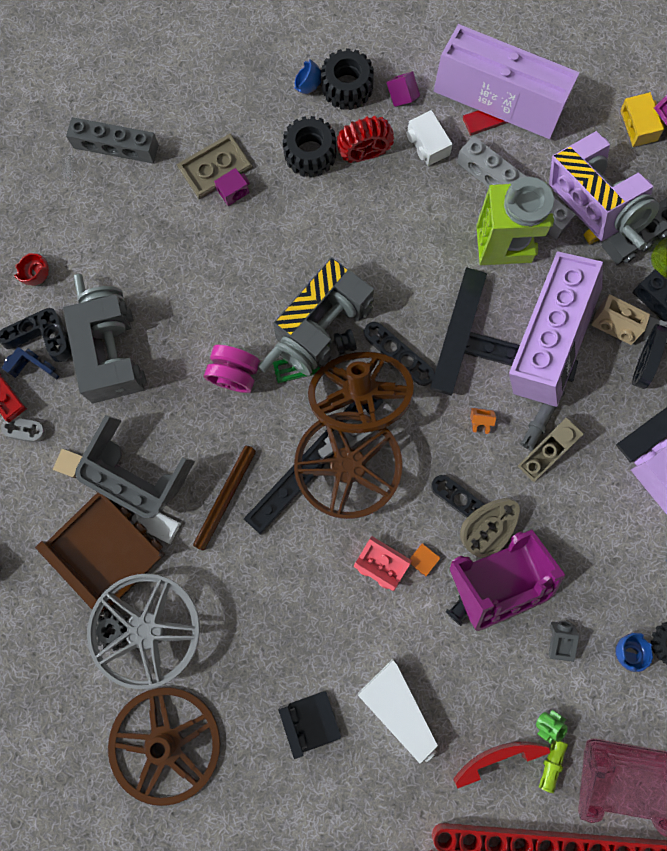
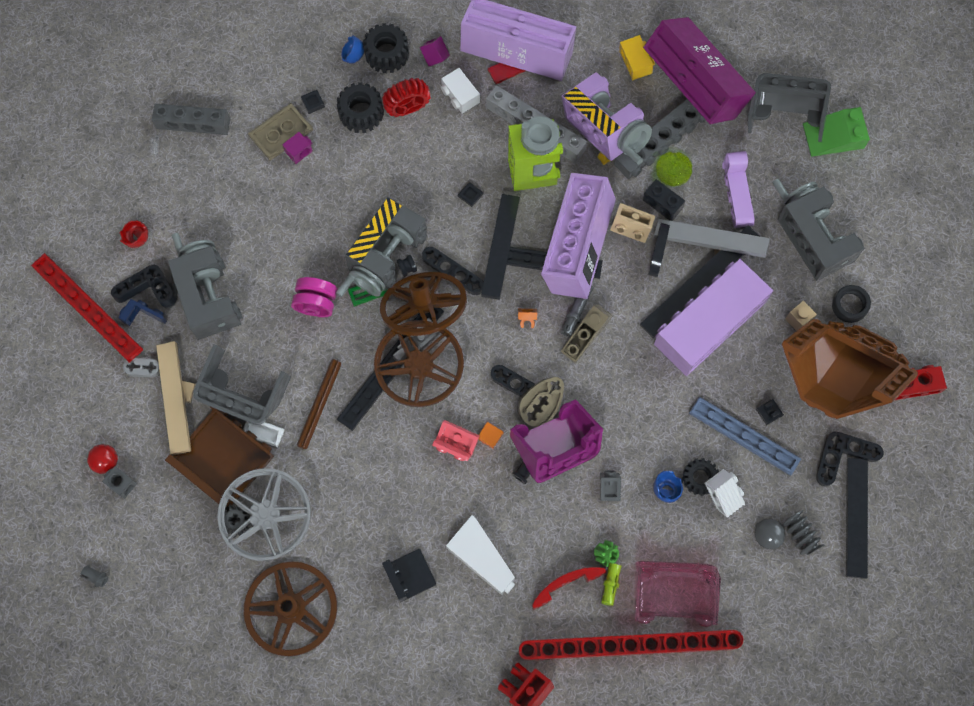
camera: 10 degrees left, 5 degrees down
(55, 471) = (173, 398): none -> tan tile
(255, 134) = (312, 101): none -> black plate
(428, 263) = (470, 194): none -> black tile

